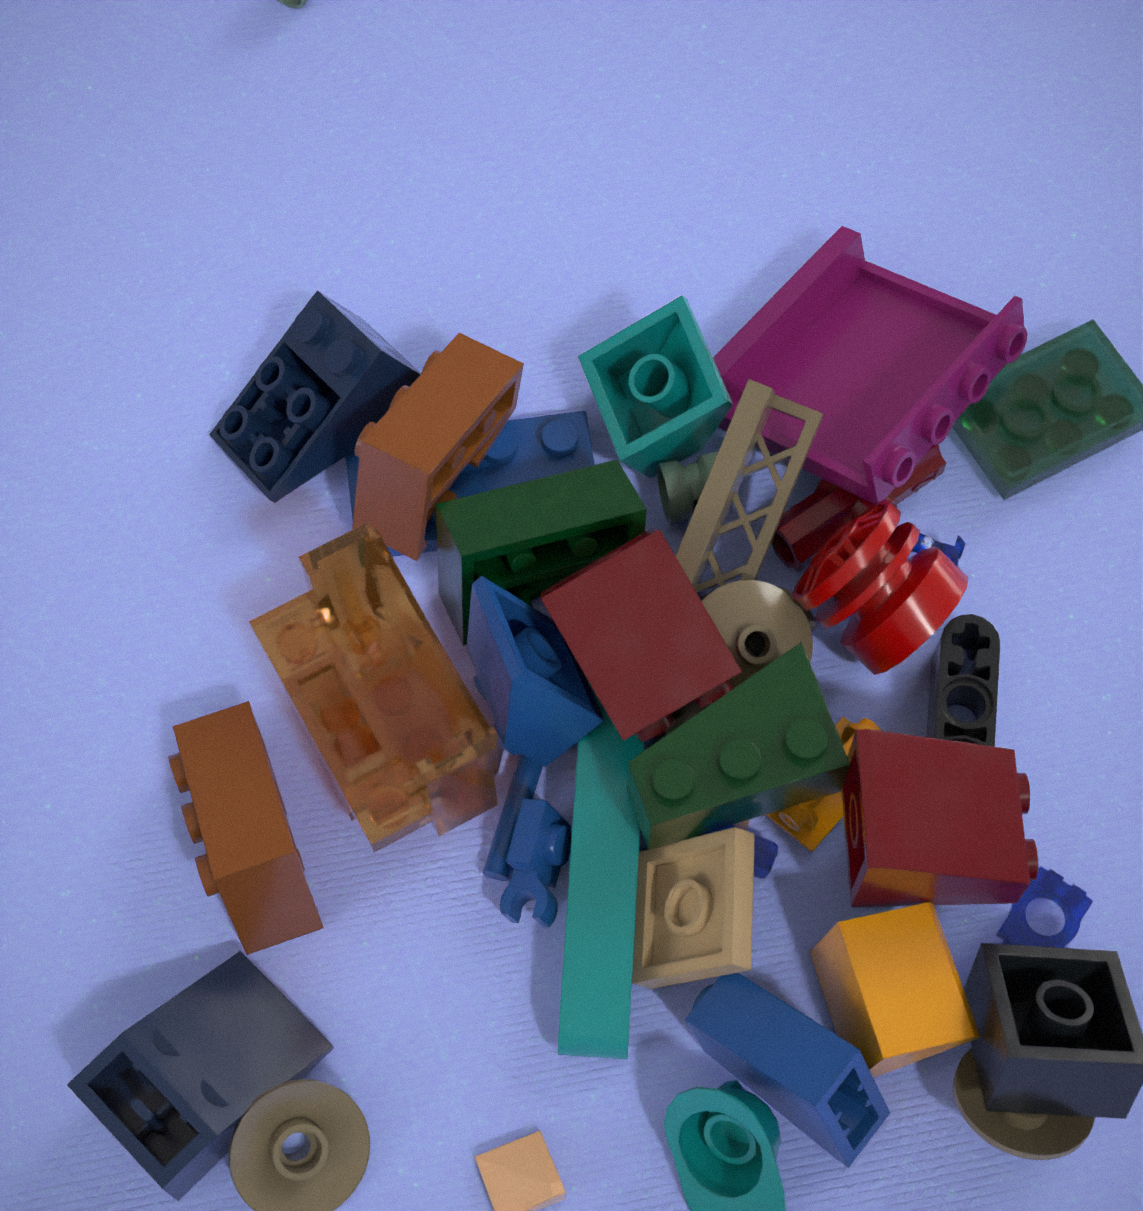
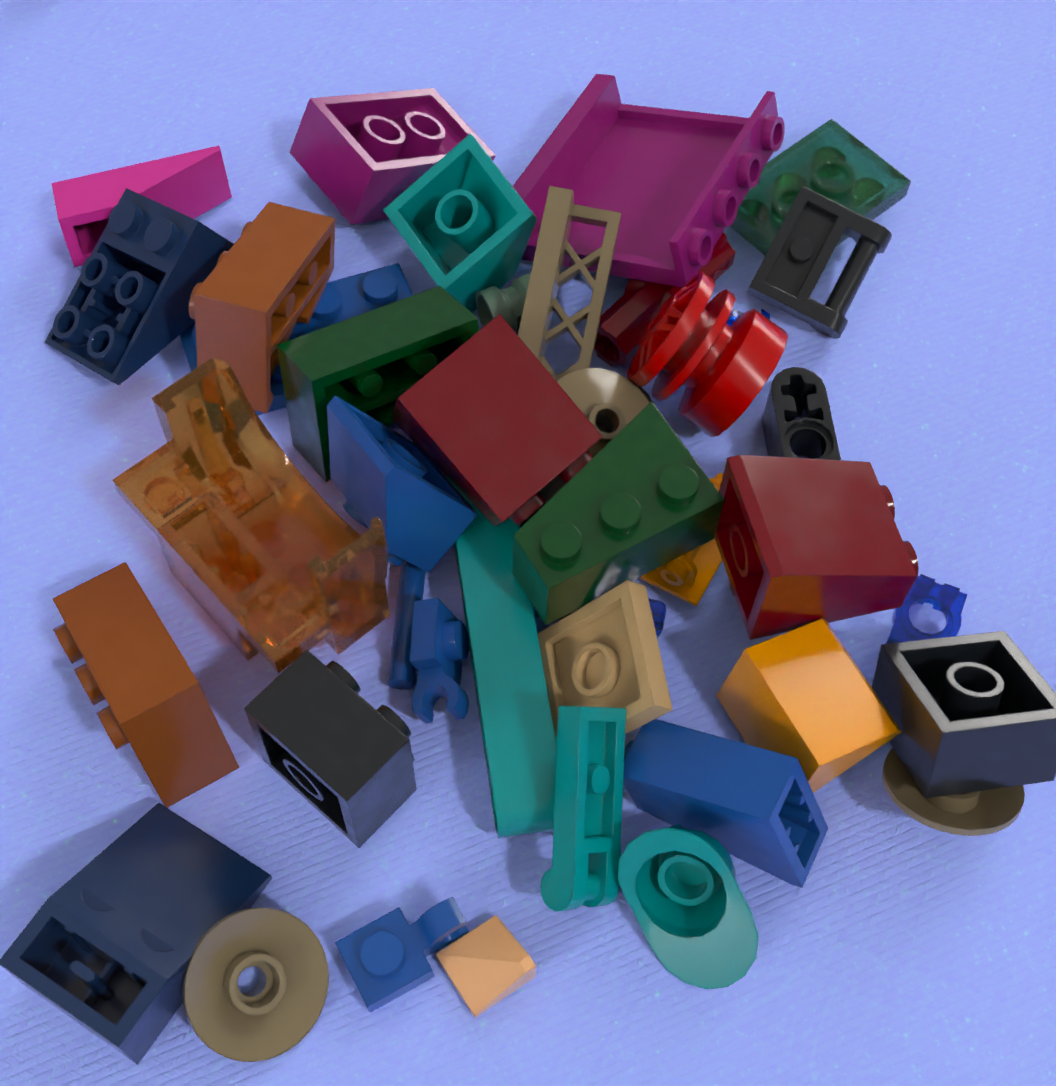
camera: 15 degrees left, 5 degrees down
(364, 283) = (182, 182): none -> dark pink slope
(414, 935) = (334, 745): none -> black brick
(432, 1148) = (391, 955): none -> blue plate
(597, 273) = (375, 146): none -> magenta slope
(647, 1047) = (586, 808): none -> teal plate
(1016, 481) = (802, 253): none -> black plate

